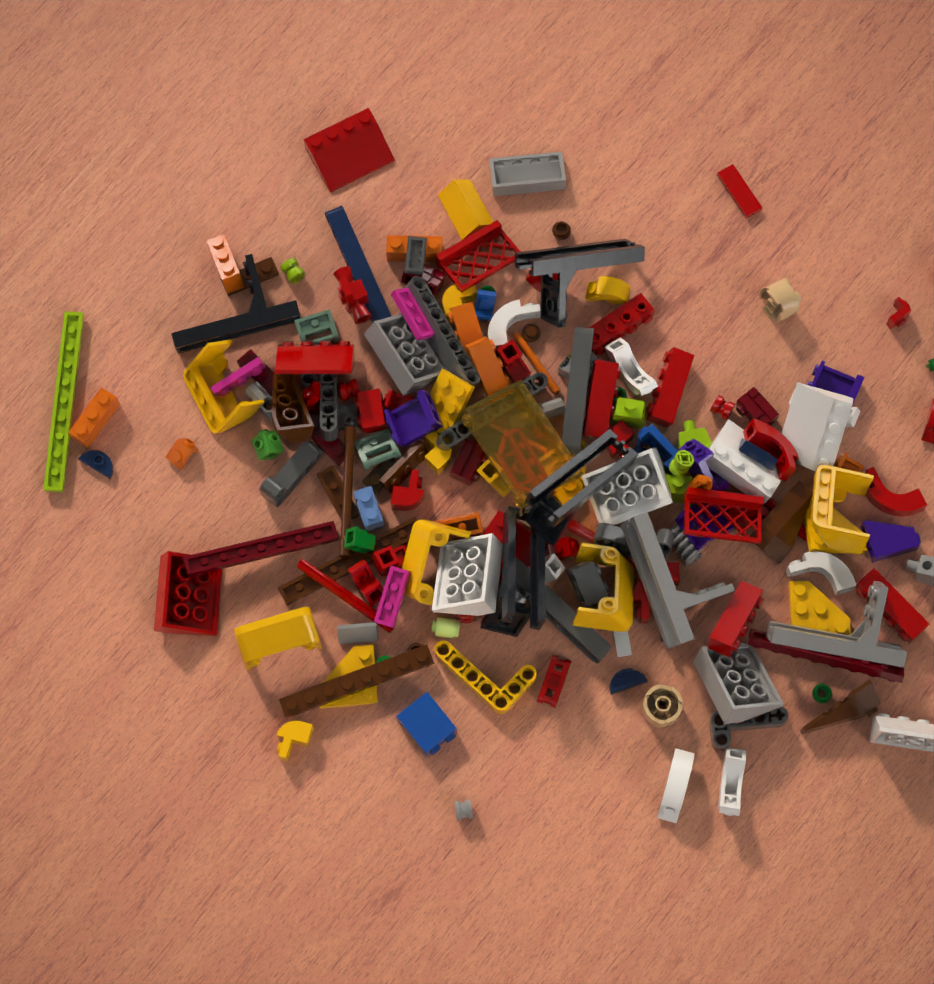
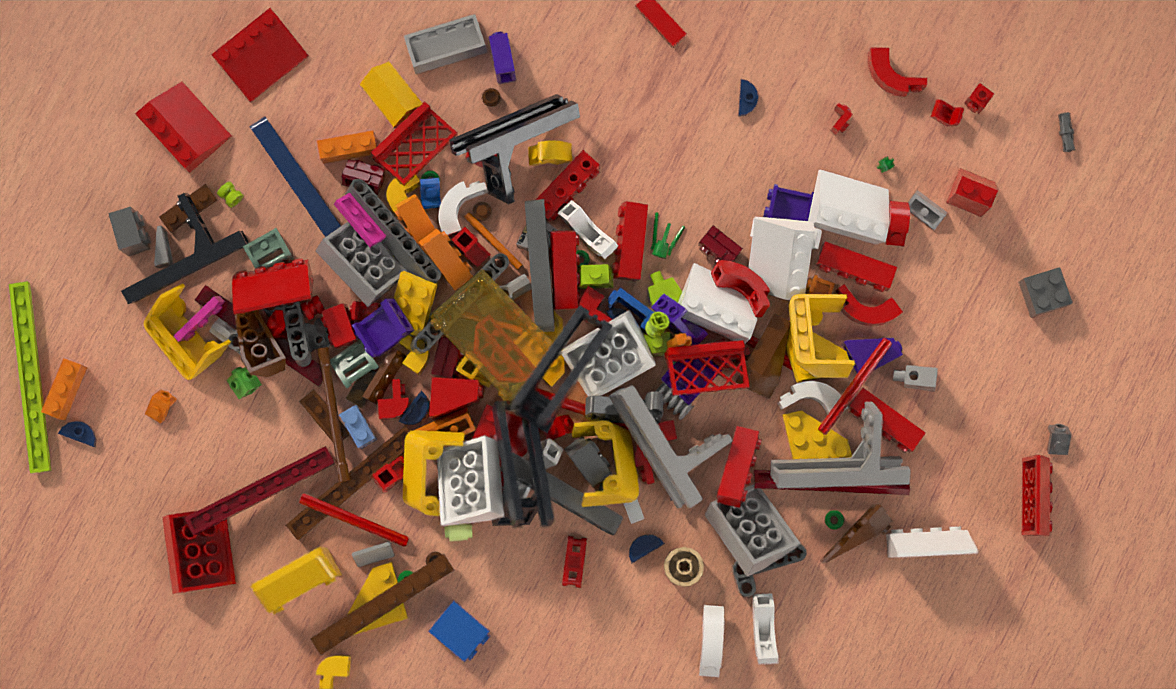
camera: 15 degrees left, 10 degrees up
(191, 284) = (130, 231): none -> dark grey brick
(217, 306) = (163, 254): none -> light grey slope
(225, 264) = (160, 203): brick -> none
(262, 201) = (183, 125): none -> red slope
(291, 474) = (273, 406): dark grey beam -> none
(352, 295) = (295, 211): red brick -> none
(359, 540) = (355, 463): green brick -> none
(366, 582) = (372, 503): red brick -> none
(392, 596) = (399, 513): dark pink plate -> none
(415, 255) = (350, 157): dark grey plate -> none
(428, 506) = (416, 411): none -> dark blue plate
(468, 495) = (453, 395): none -> red slope
(482, 681) = (504, 576): yellow beam -> none
(579, 196) = (502, 57): none -> dark purple slope
(698, 401) = (661, 248): none -> green plant
(726, 410) = (690, 252): red wheel -> none
(757, 454) = (729, 296): dark blue slope -> none
(780, 300) = (722, 129): tan brick -> none
(811, 277) = (747, 98): none -> dark blue plate
(866, 565) = (854, 386): none -> red axle
(888, 453) = (856, 266): none -> red brick
(892, 397) = (850, 208): none -> white slope

